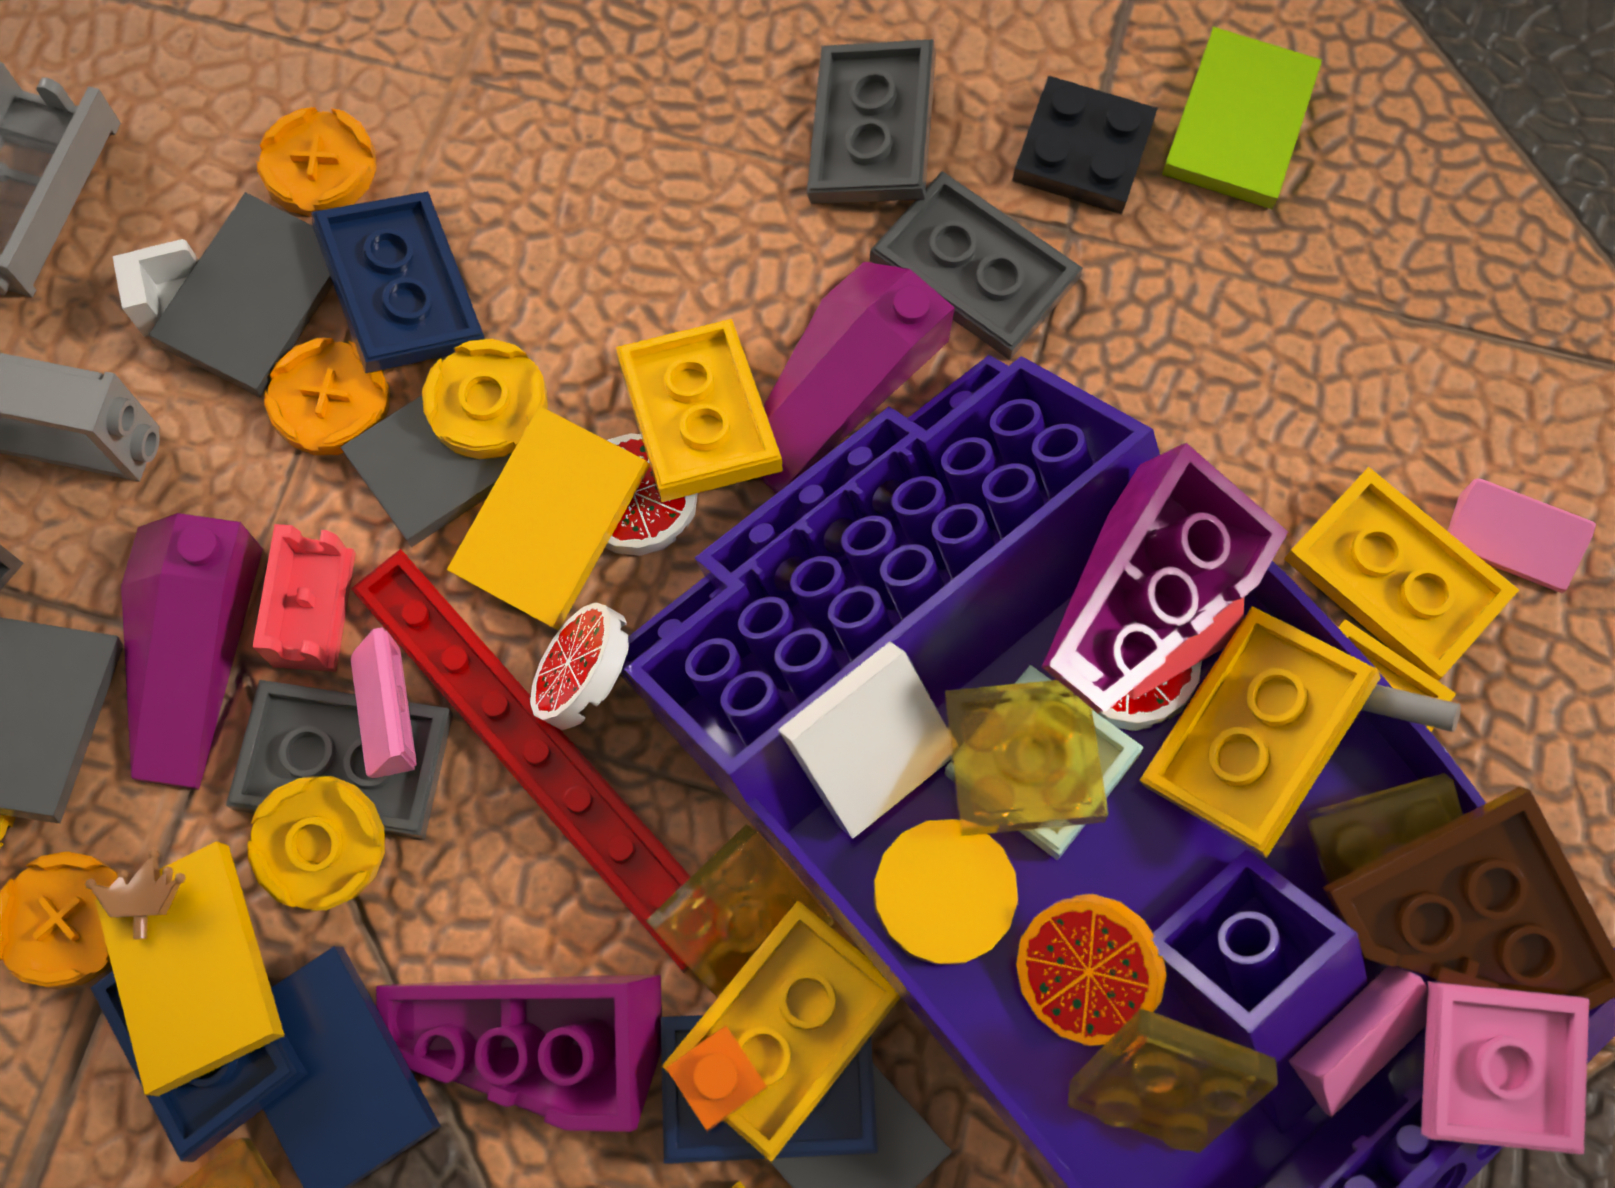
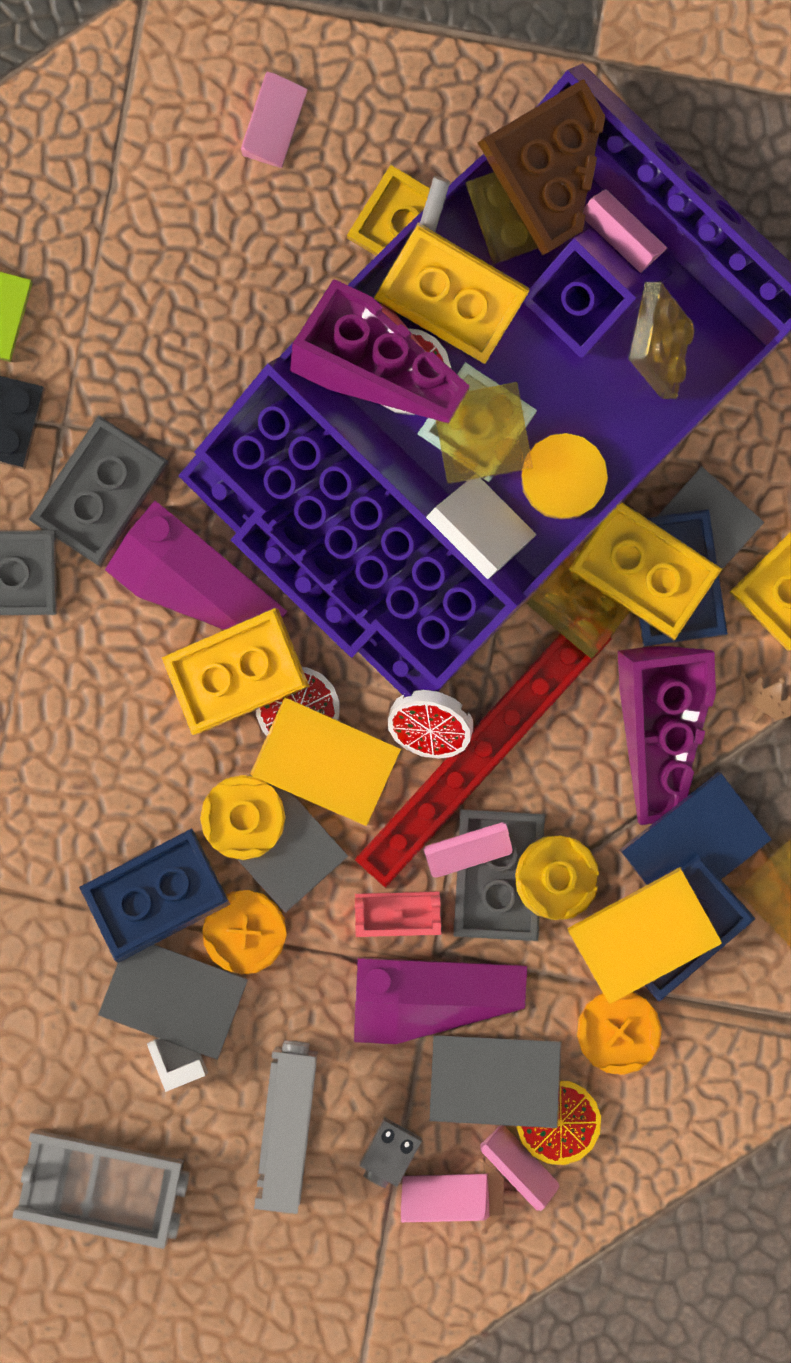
camera: 95 degrees left, 15 degrees up
(142, 896) = (606, 971): medium nougat piece -> none
(316, 160) = (58, 974): light orange tile -> none
(716, 1078) = (680, 604): orange plate -> none
(1089, 968) = (603, 389): tile -> none
(1401, 575) = (309, 197): yellow plate -> none
(1505, 1068) = (635, 152): bright pink plate -> none

